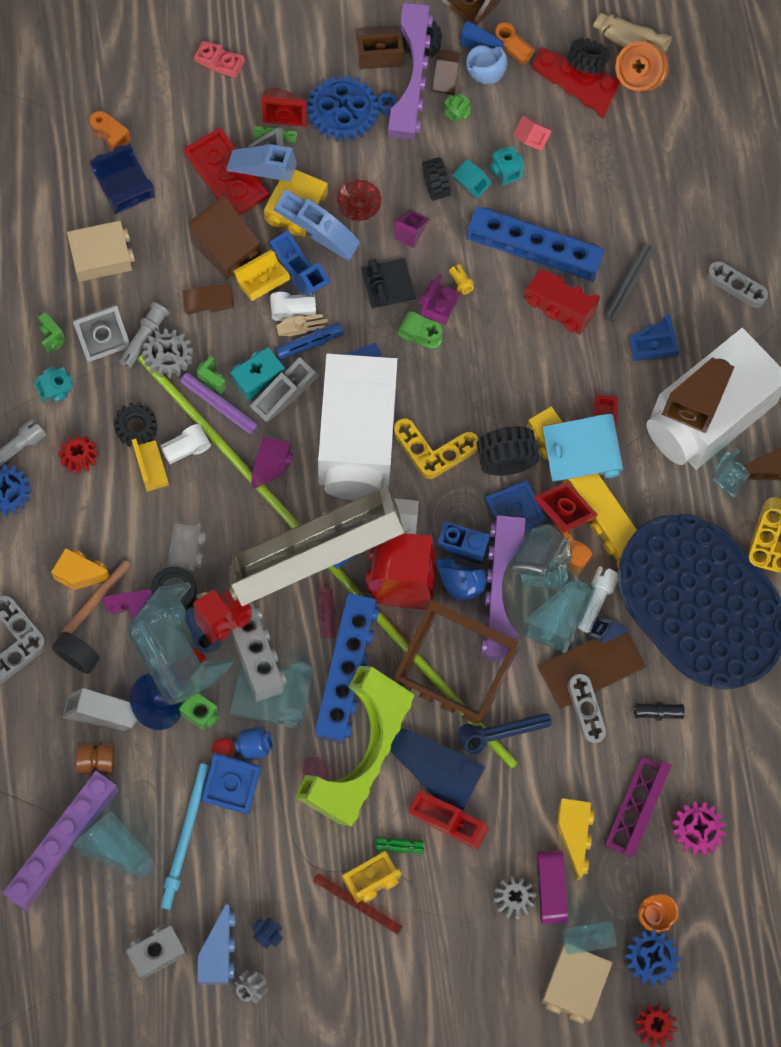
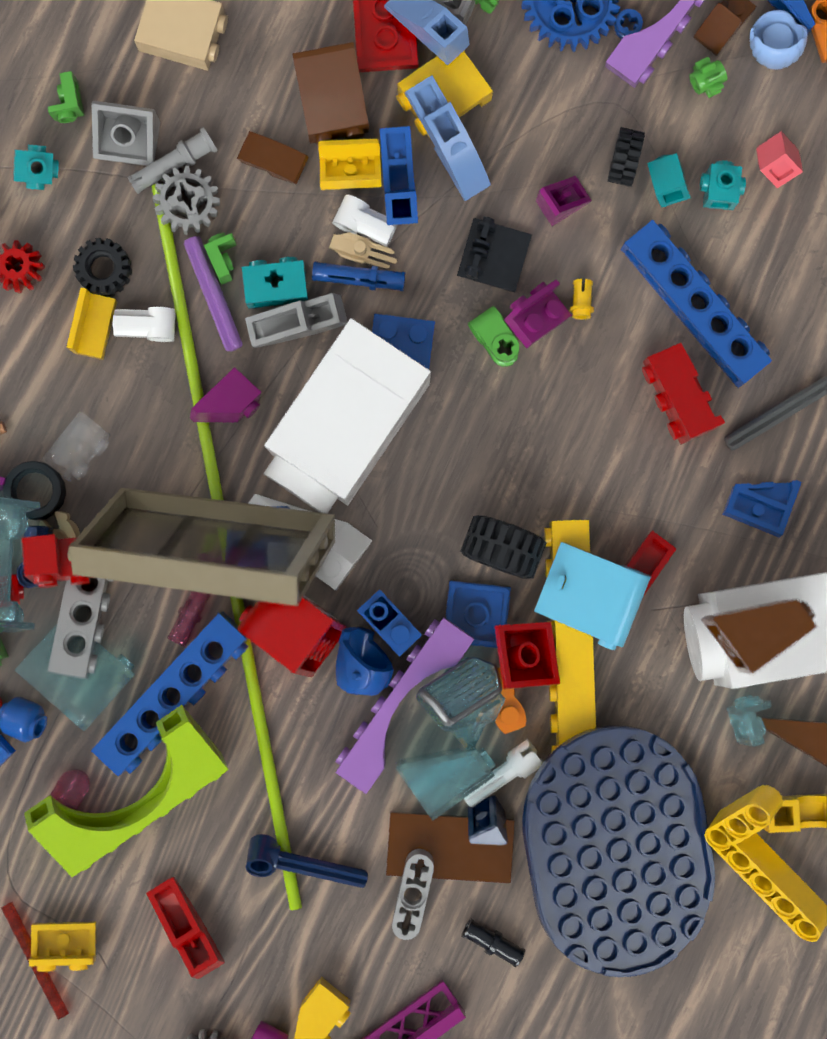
camera: 30 degrees right, 15 degrees up
(362, 192) = (523, 118): clear red dish -> none
(399, 845) = (117, 923): green axle -> none
(428, 694) = (336, 734): reddish brown window -> none
(429, 456) = (415, 493): yellow beam -> none
(438, 768) = (211, 870): dark blue wedge -> none

